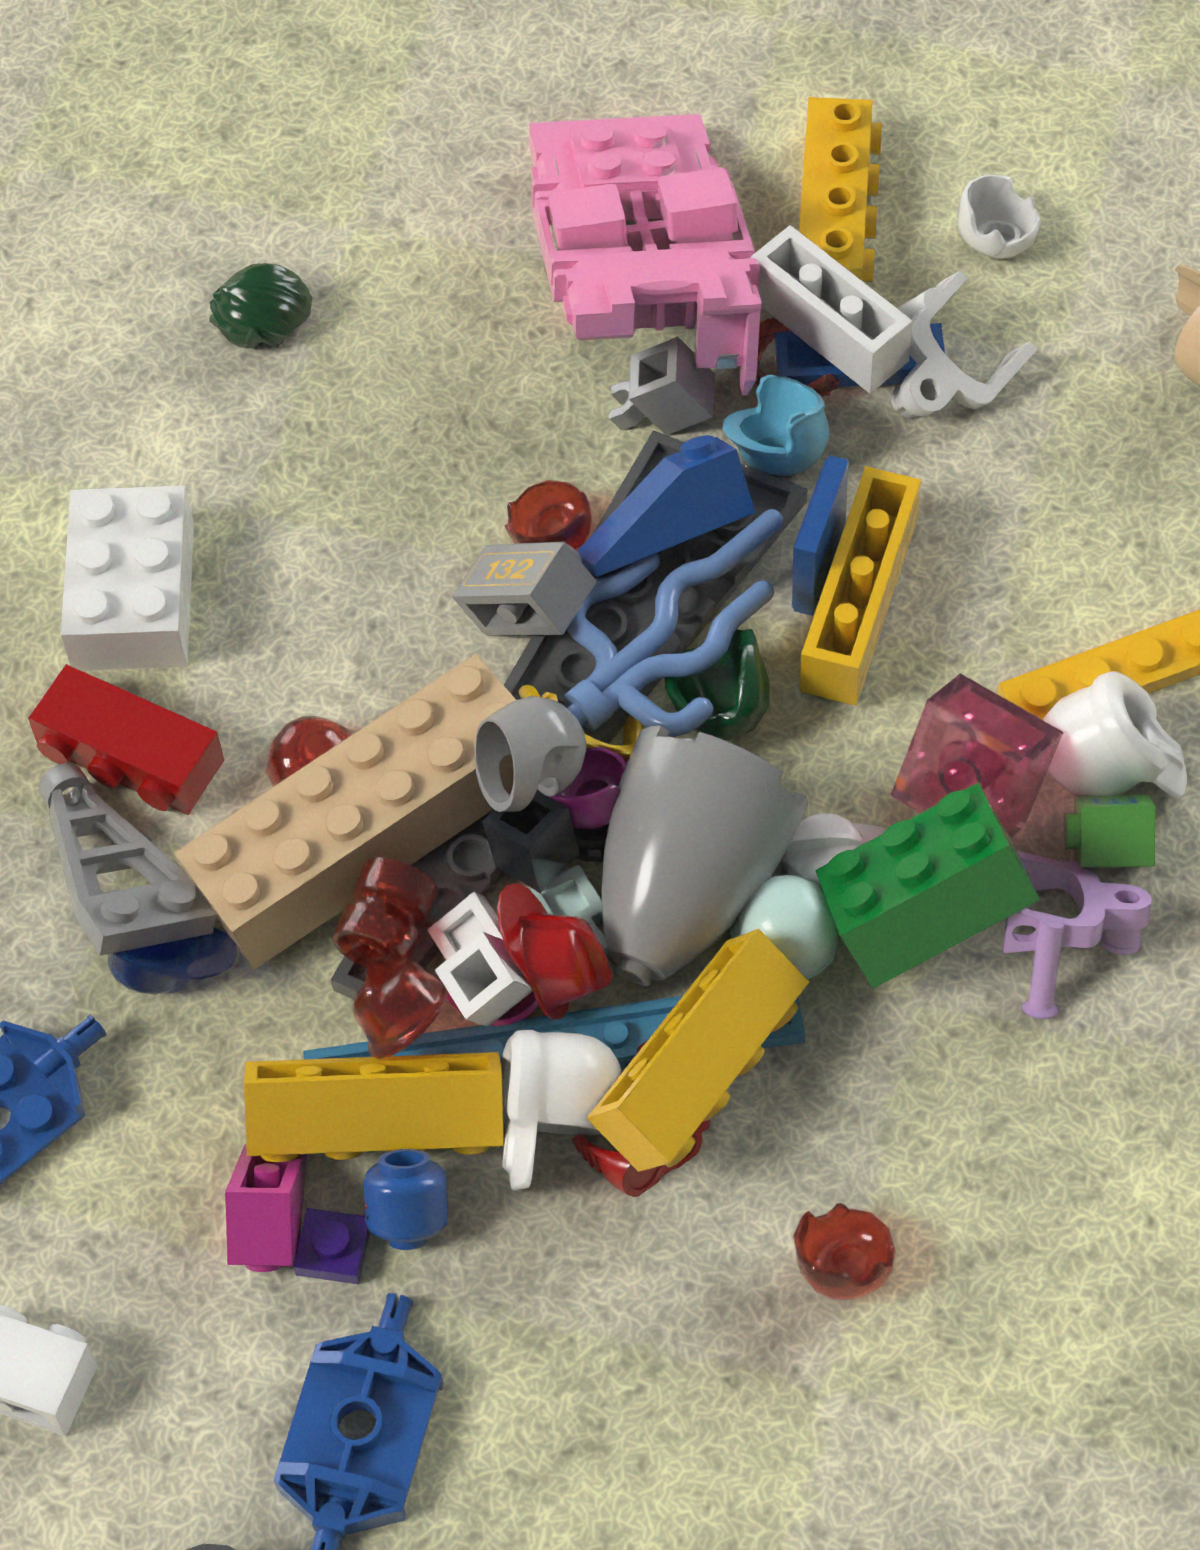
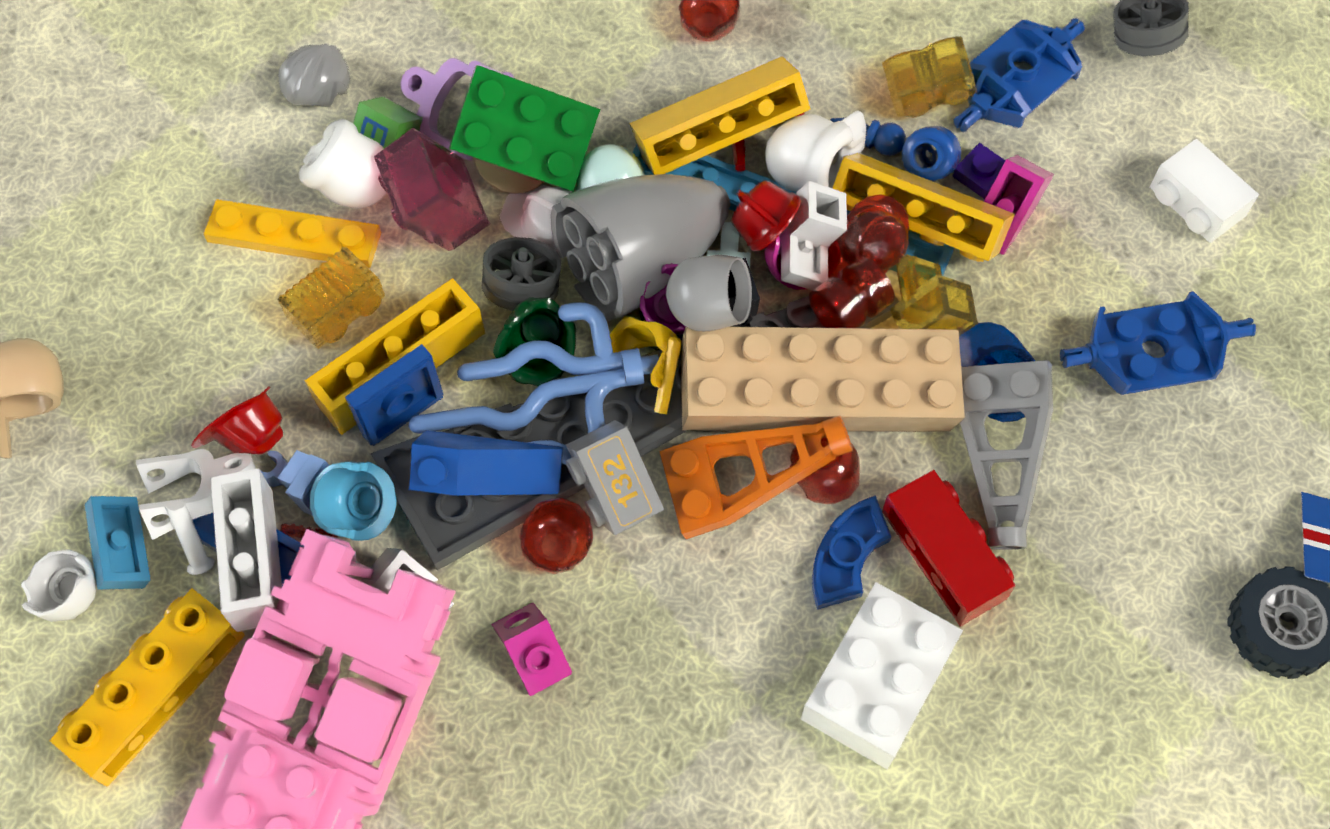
camera: 150 degrees left, 5 degrees up
(240, 690) = (844, 551): none -> blue tile
(289, 967) = (932, 299): none -> clear yellow brick
(418, 639) = (695, 485): none -> orange plate
(473, 1319) = (929, 77): none -> clear yellow brick
(482, 1209) = (886, 138): none -> blue bar
(501, 416) = (533, 648): none -> dark pink bracket
(806, 749) = (525, 271): none -> dark grey wheel
(858, 433) = (296, 475): none -> light blue piece
(954, 433) = (245, 428): none -> red piece
(991, 284) = (117, 542): none -> dark azure plate
(994, 616) = (332, 298): none -> clear yellow brick

